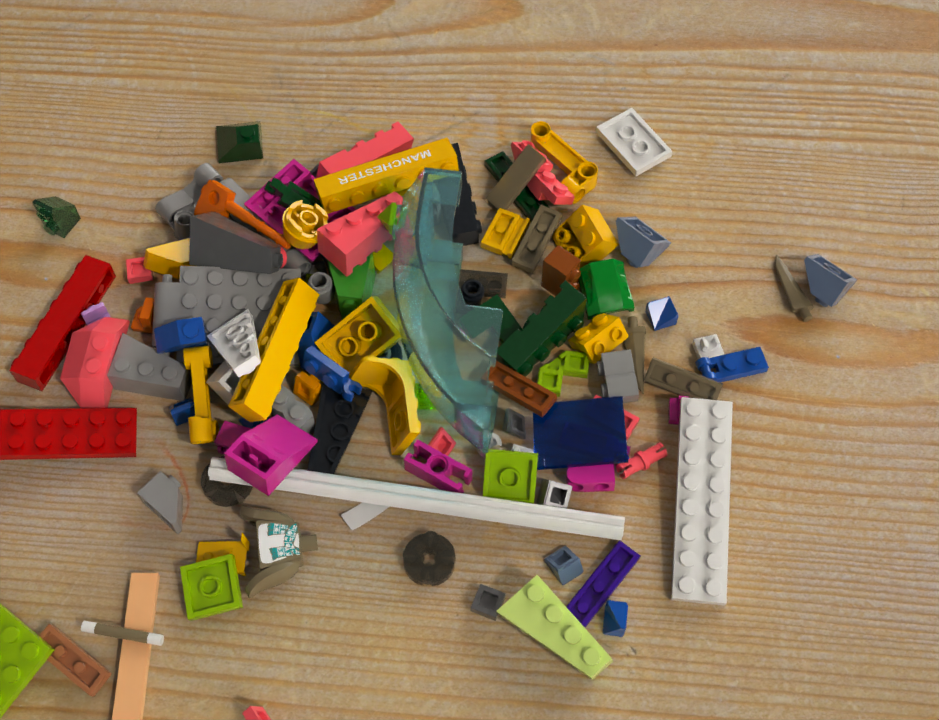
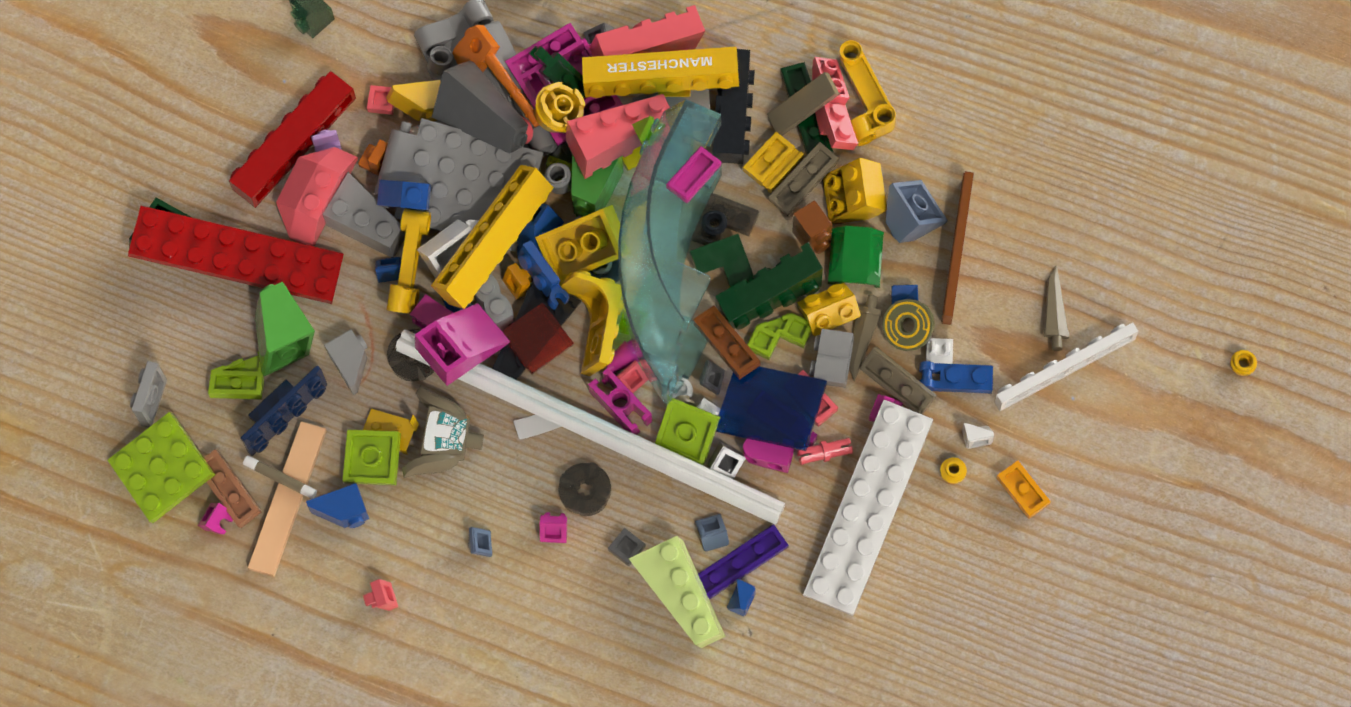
camera: 20 degrees right, 10 degrees up
(59, 549) = (237, 380): none -> lime wing
(61, 694) = (212, 518): none -> dark pink tile
(91, 489) = (281, 329): none -> bright green slope
(107, 566) = (280, 407): none -> dark blue bracket
(192, 645) = (341, 507): none -> blue slope
(237, 343) = (456, 221): white wing -> none
(342, 432) = (537, 338): none -> clear red tile
(342, 639) = (480, 542): none -> sand blue slope
(411, 604) = (553, 528): none -> dark pink tile
(429, 426) = (623, 357): none -> dark pink cone
(455, 226) = (693, 174): none -> dark pink tile
(633, 141) = (951, 89): white plate -> none
(669, 317) = (894, 329): none -> olive tile
(690, 261) = (957, 248): none -> dark orange tile
(760, 451) = (950, 477): none -> yellow plate
(771, 409) = (977, 436): none -> white slope
(827, 280) = (1094, 310): sand blue slope -> none
(828, 324) = (1074, 361): none -> white plate
(832, 444) = (1023, 489): none -> light orange plate

